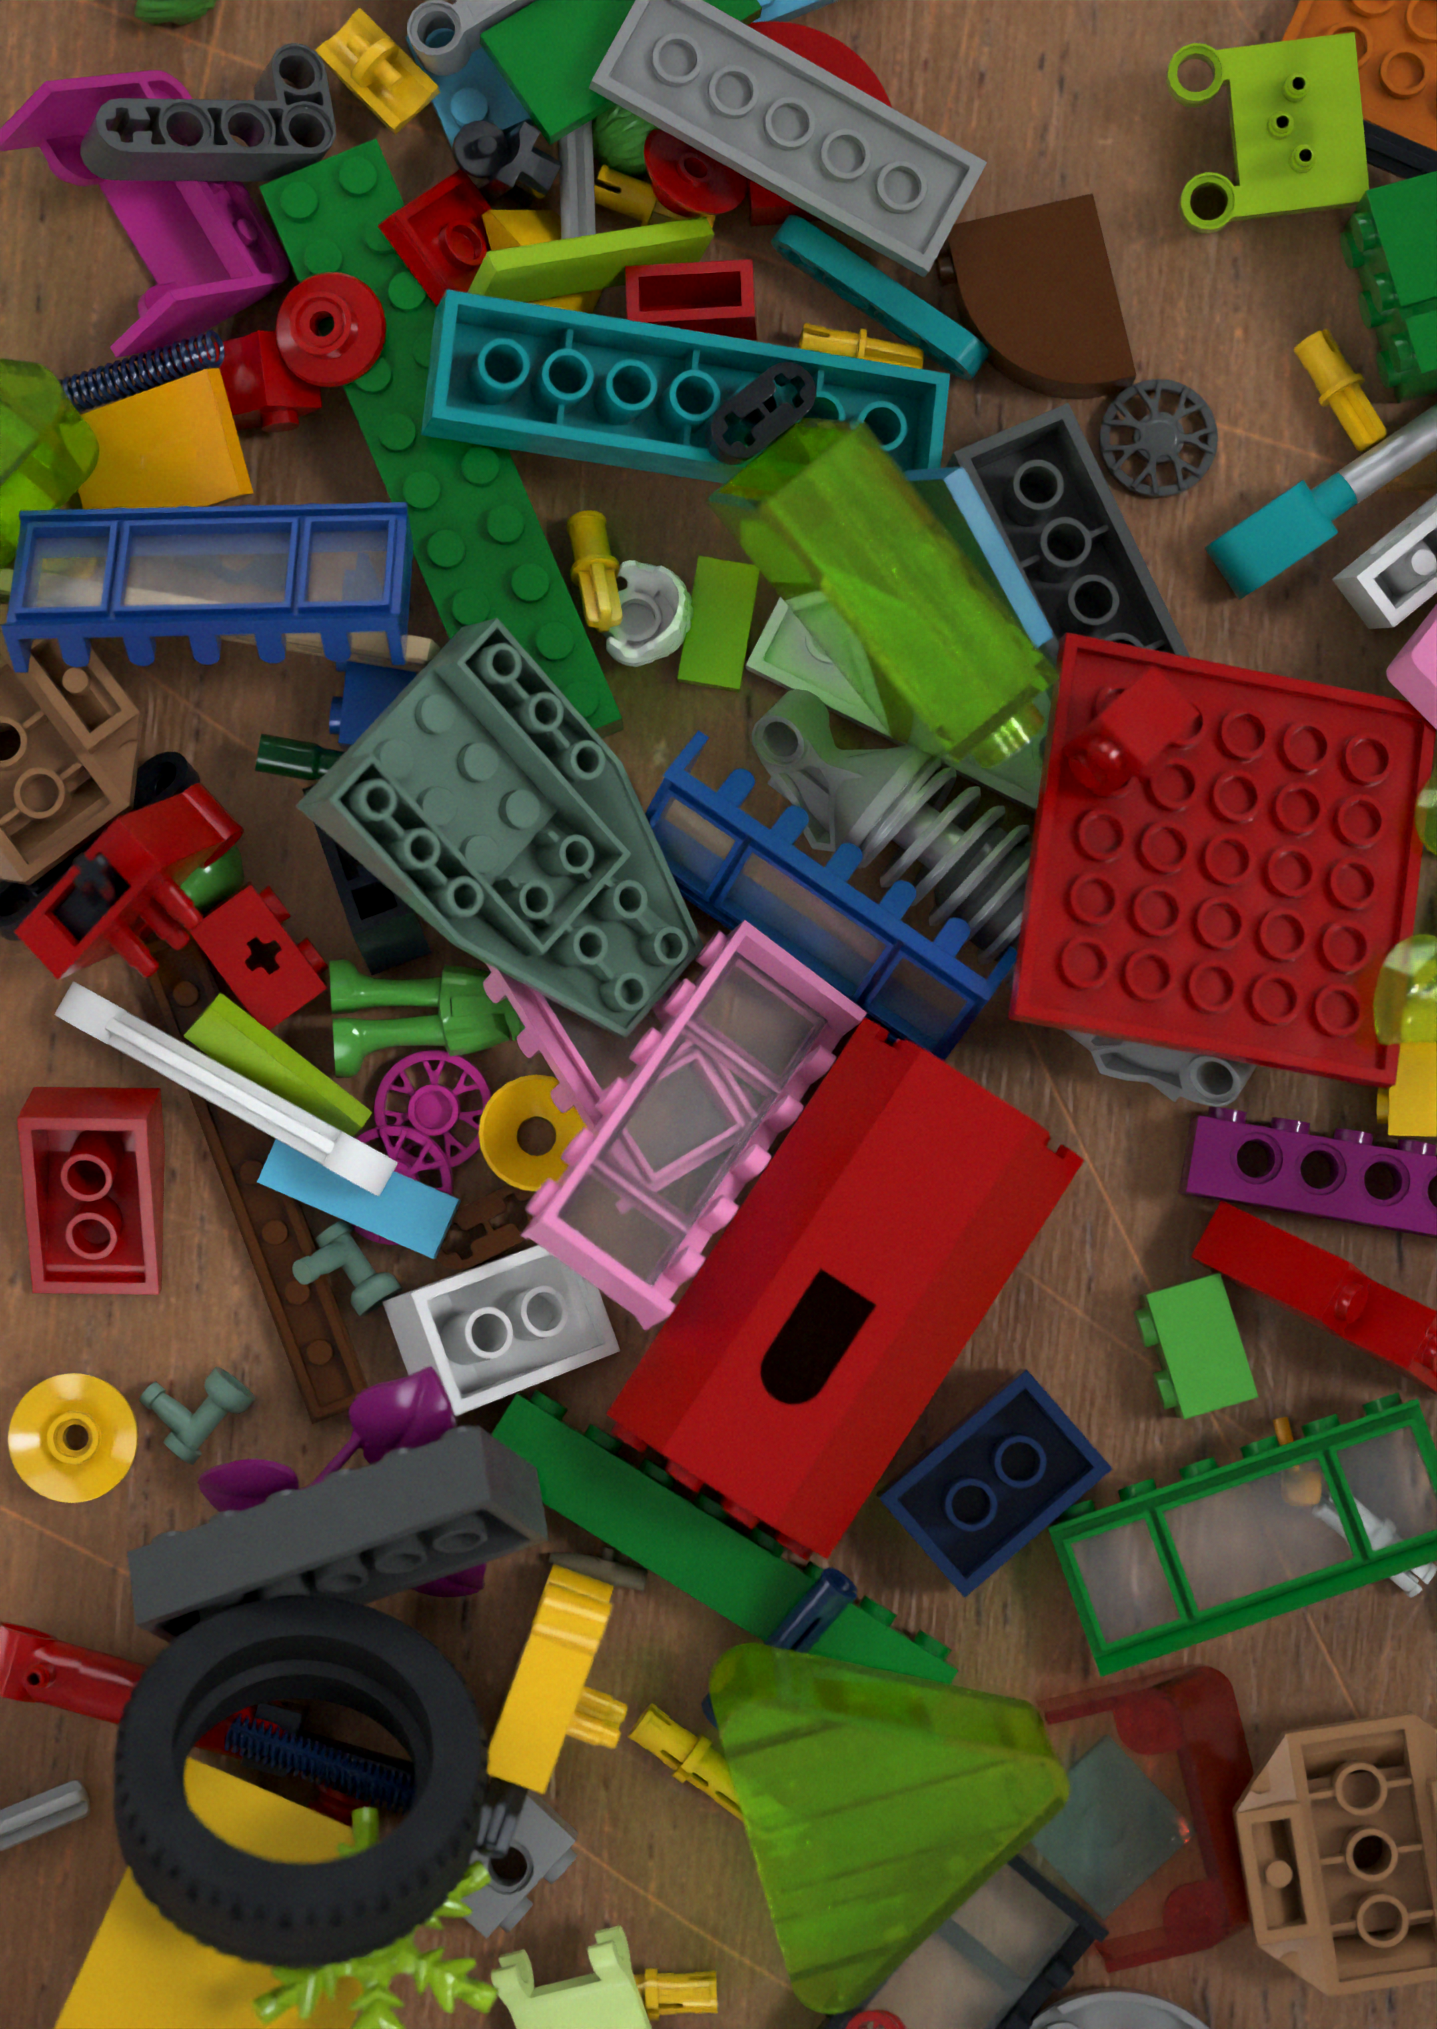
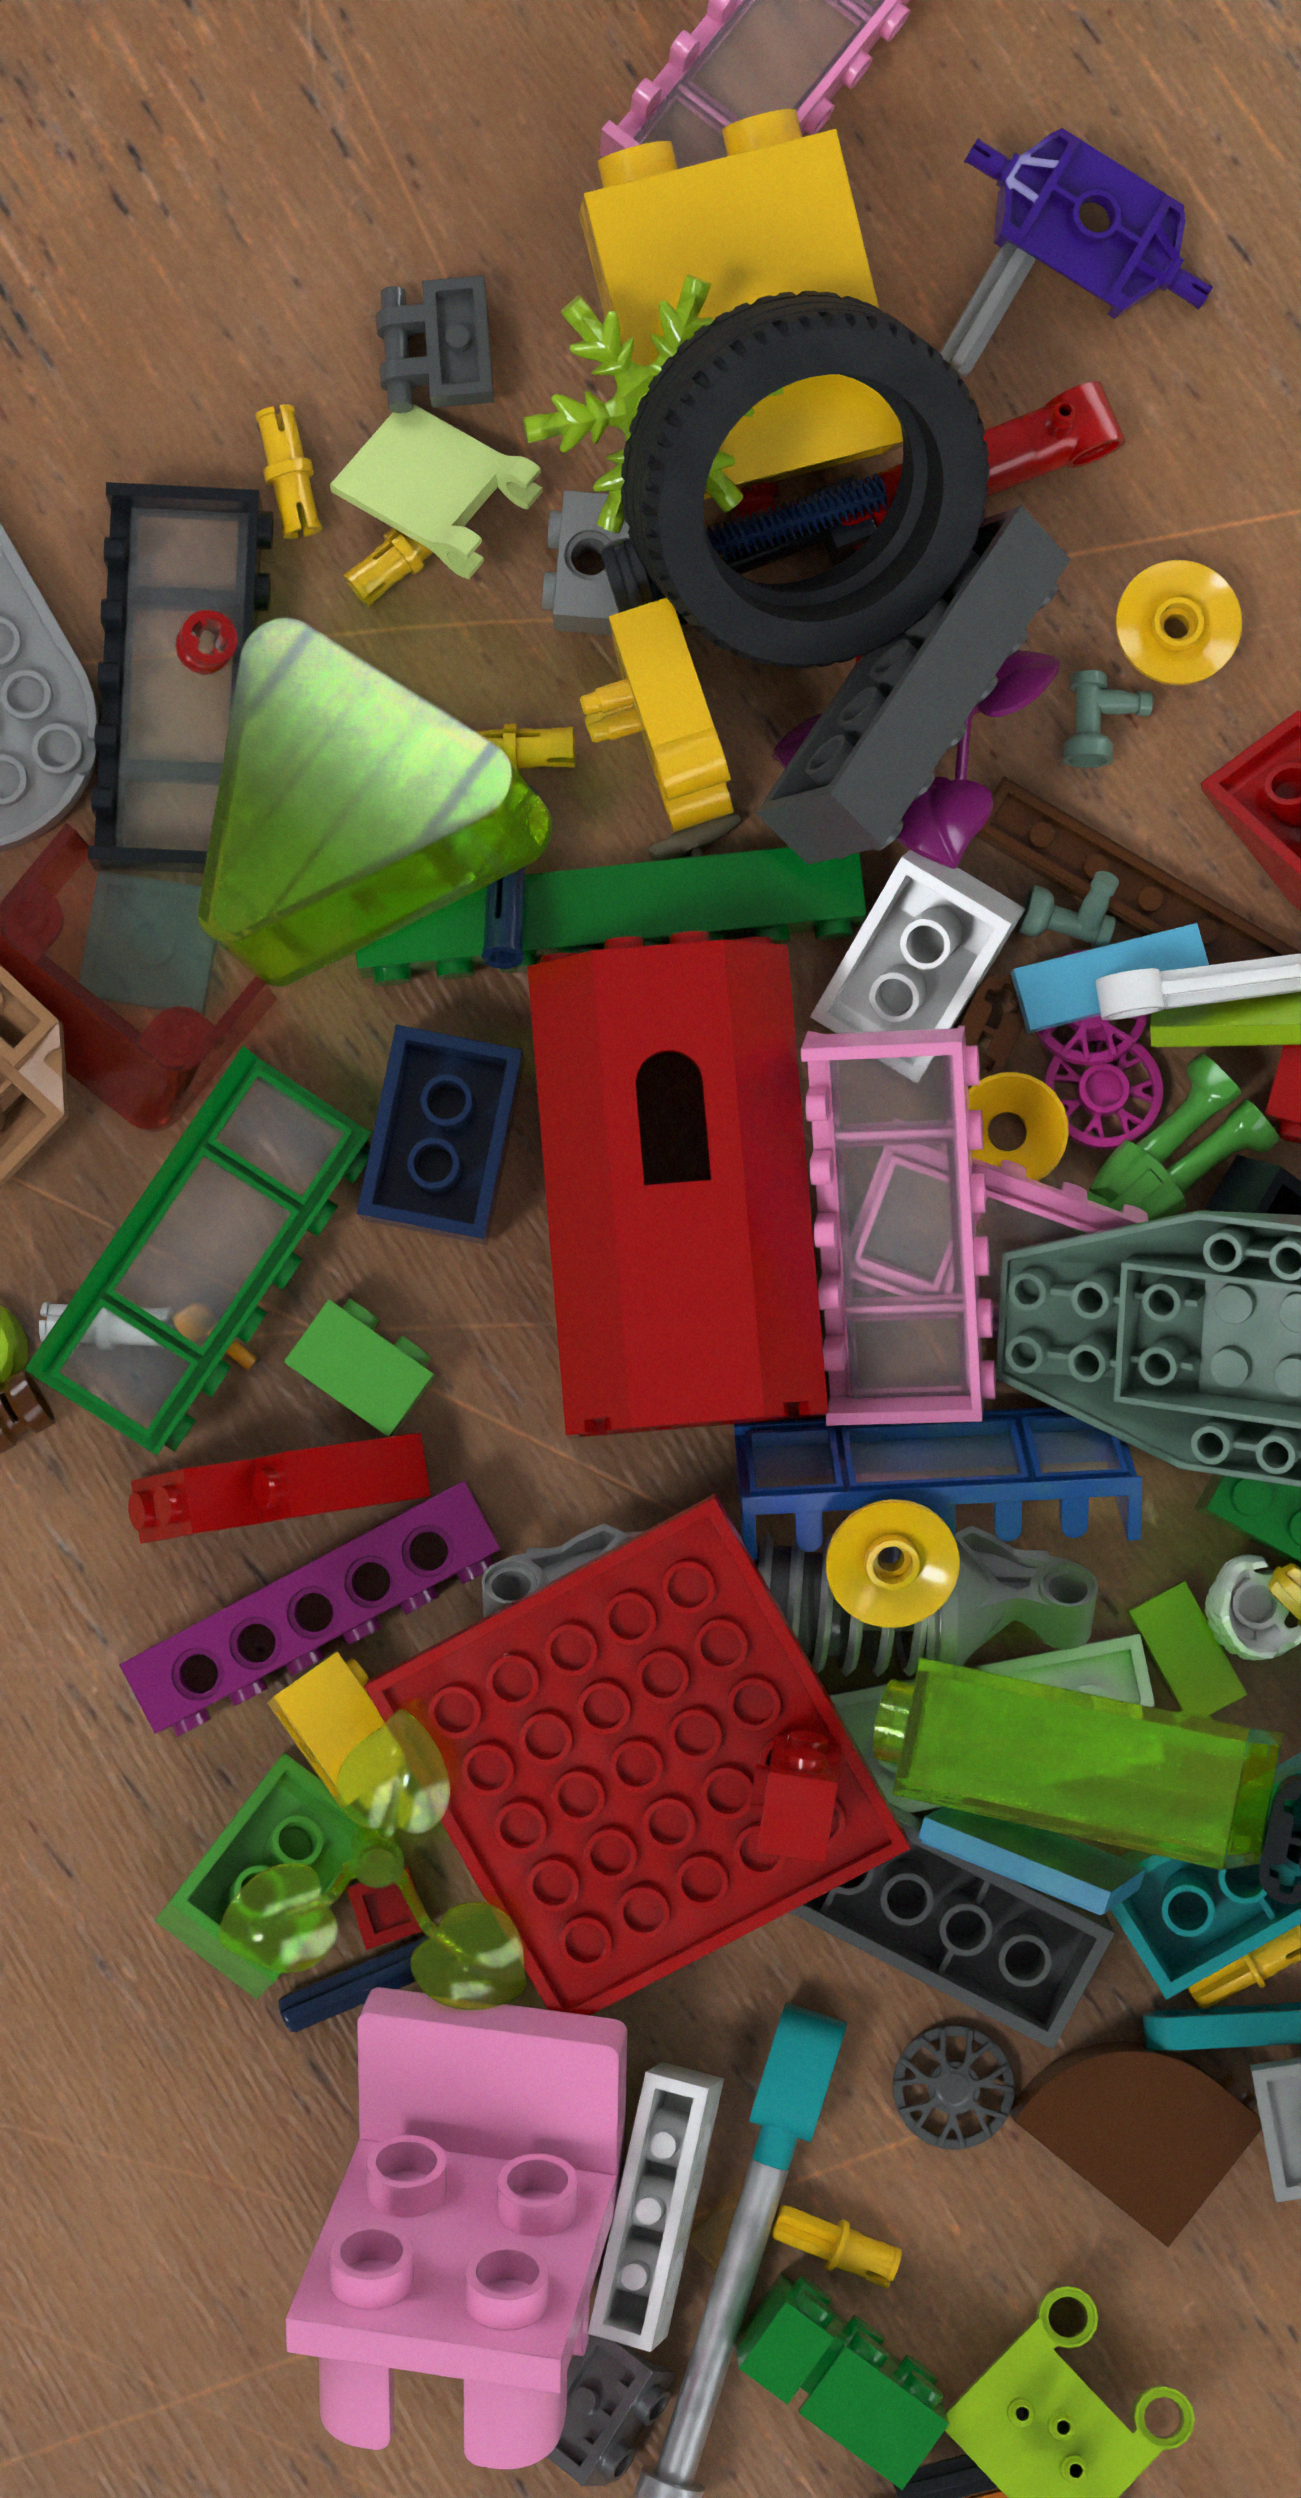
camera: 145 degrees right, 0 degrees up
(924, 838) = (896, 1591): none -> yellow dish

